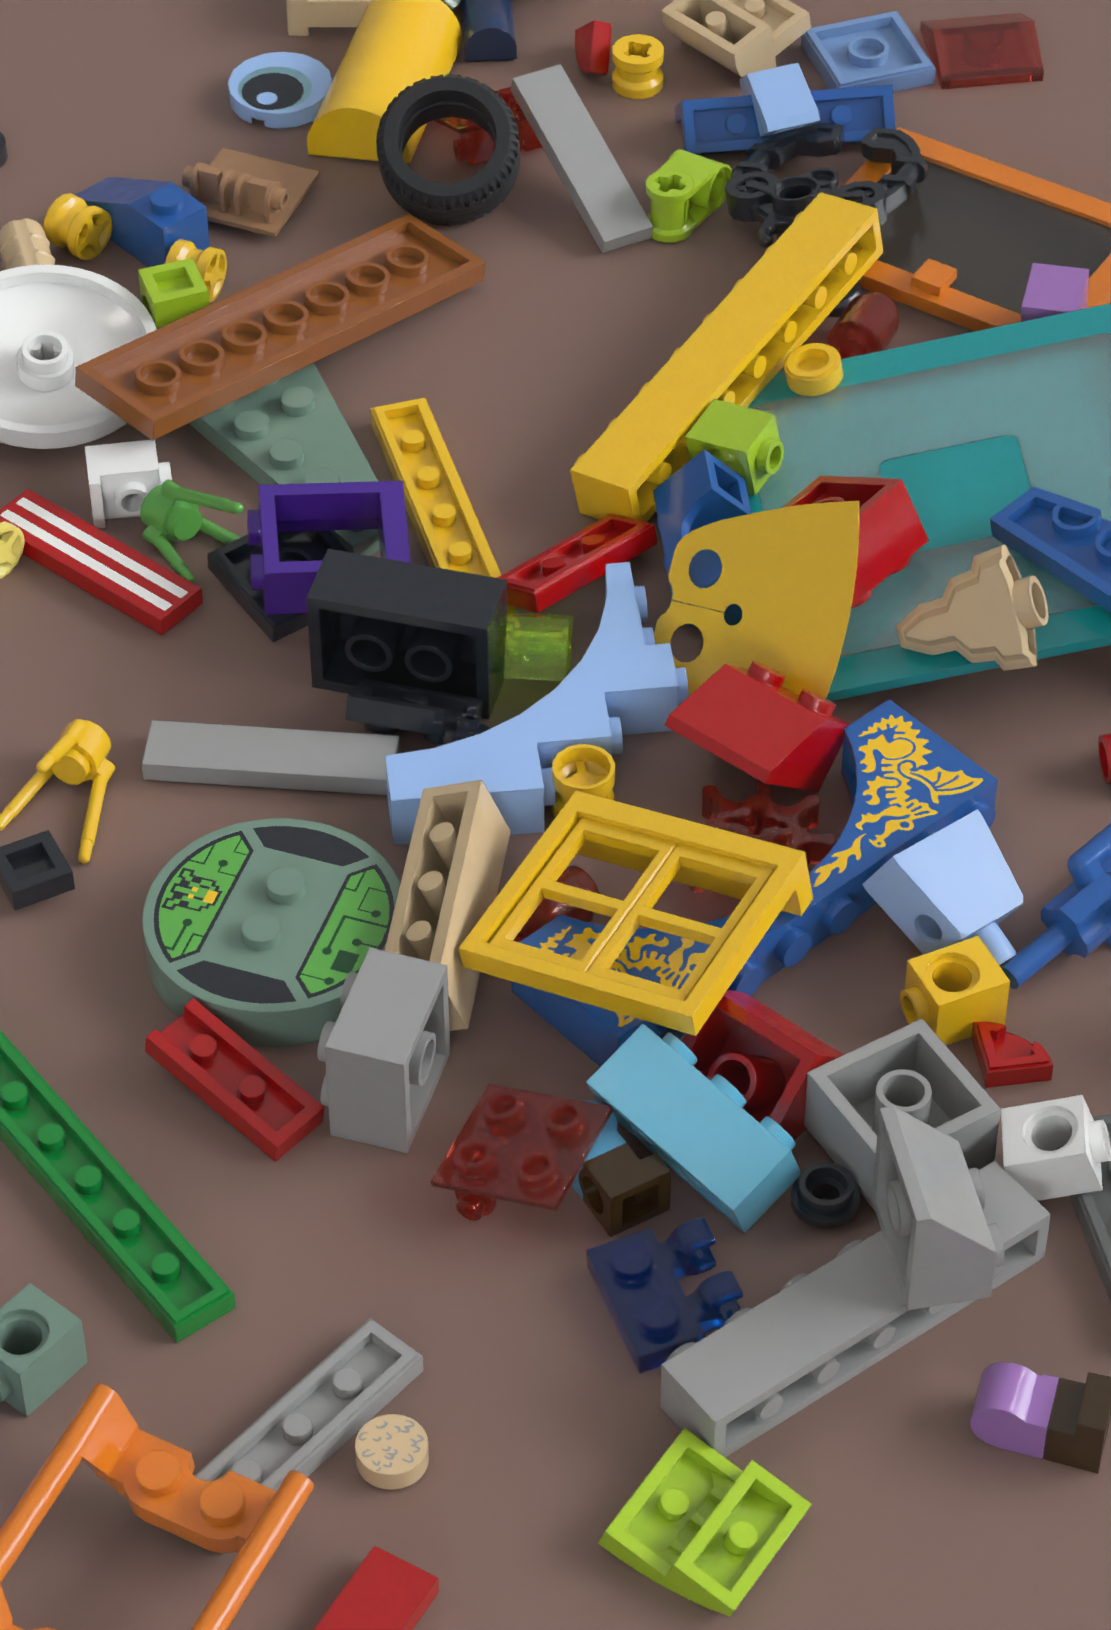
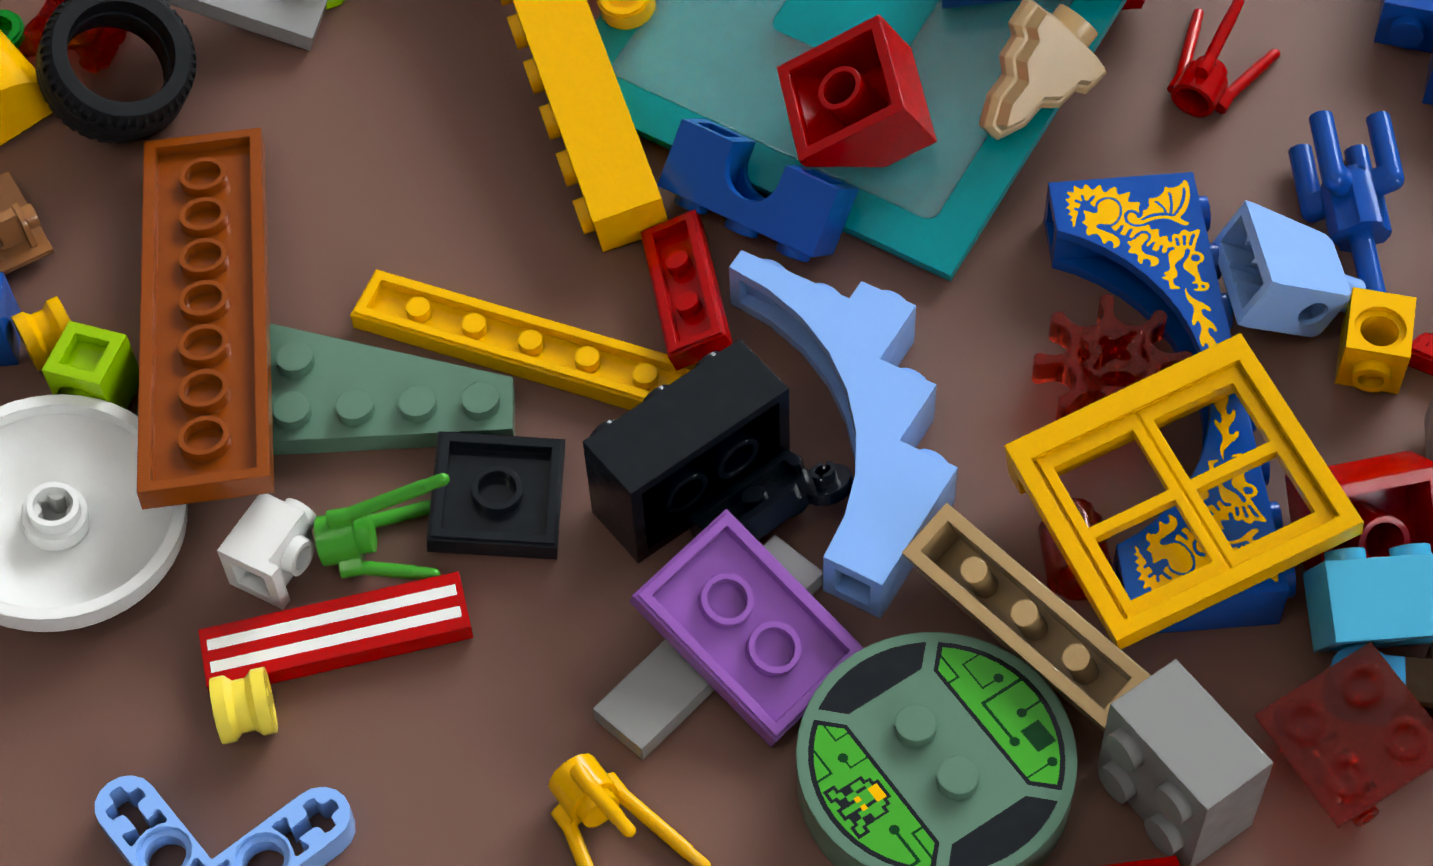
camera: 50 degrees left, 10 degrees up
(294, 745) = (745, 625): none -> medium lavender tile
(319, 508) = (548, 390): dark purple window -> none
(538, 646) = (792, 360): clear neon green brick -> none
(582, 769) = (958, 435): yellow wheel -> none
(740, 439) = (666, 95): lime brick -> none
(762, 726) = (1012, 280): red slope -> none
(794, 586) = (931, 175): yellow piece -> none

